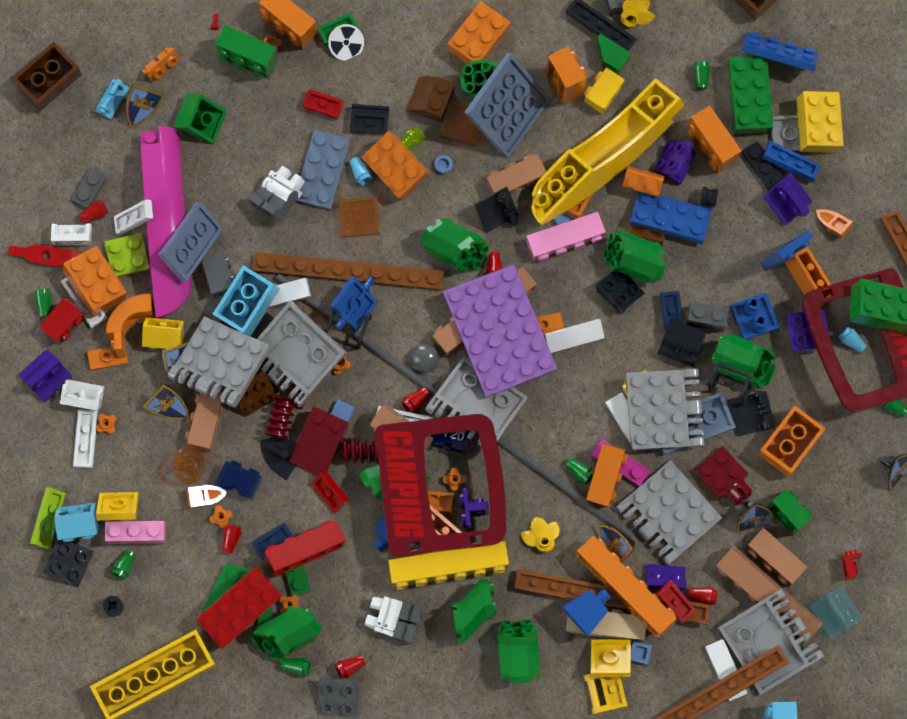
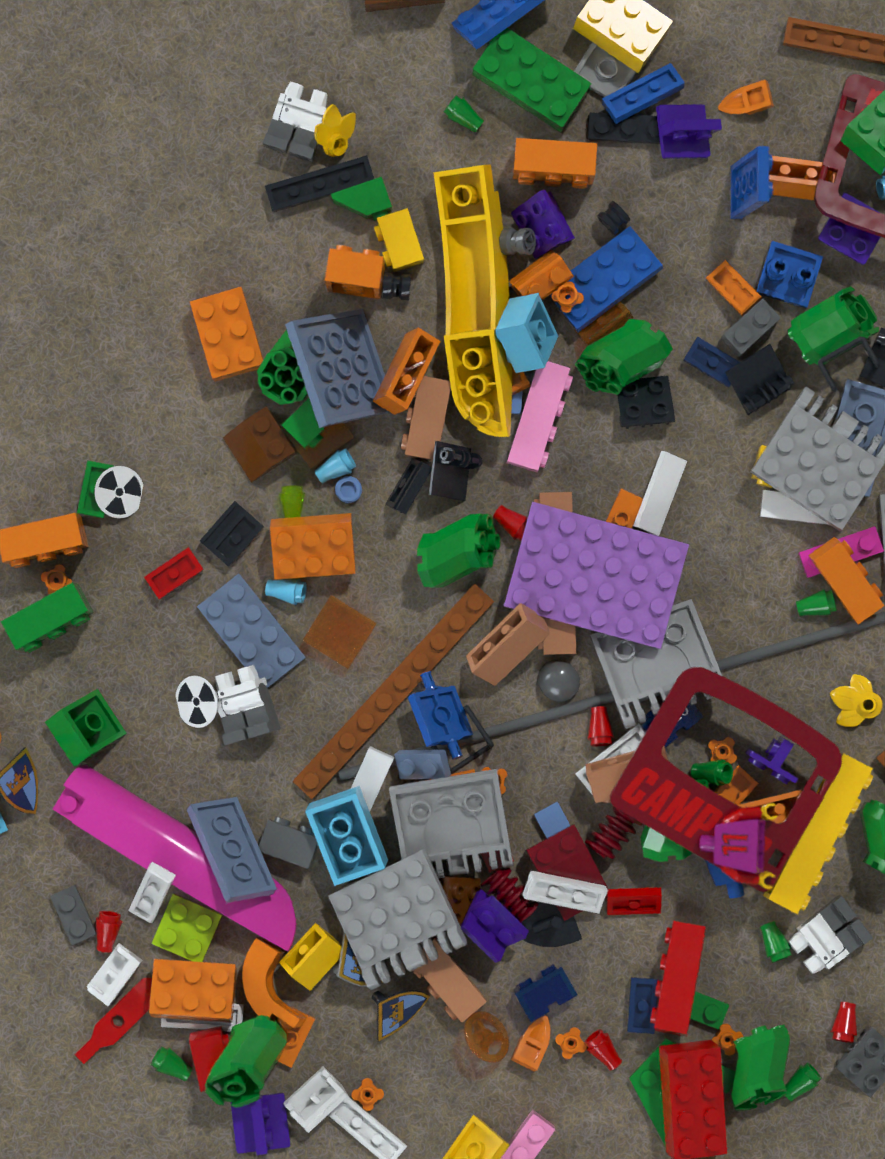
camera: 50 degrees left, 10 degrees up
(75, 336) = (246, 1062): none -> green brick
(254, 418) = (492, 926): none -> dark purple bracket
(260, 167) = (196, 701): none -> white sticker
(305, 446) = (564, 892): none -> white tile
(318, 313) = (422, 764): none -> sand blue plate
(366, 591) = (775, 942): none -> green cone
(407, 515) = (740, 845): none -> torso
(422, 310) = (507, 644): none -> nougat brick
(438, 481) = (715, 772): none -> green cone
(451, 147) = (336, 466): none -> medium azure cone
(456, 114) = (304, 426): none -> green slope
(472, 193) = (408, 486): none -> black plate
(533, 144) = (406, 371): none -> orange brick
(577, 107) = (390, 286): none -> black wheel
(606, 192) = (526, 333): none -> medium azure brick
(644, 196) = (564, 290): none -> orange plate
(653, 152) = (517, 241): none -> dark grey wheel
(722, 290) = (733, 288): none -> orange plate

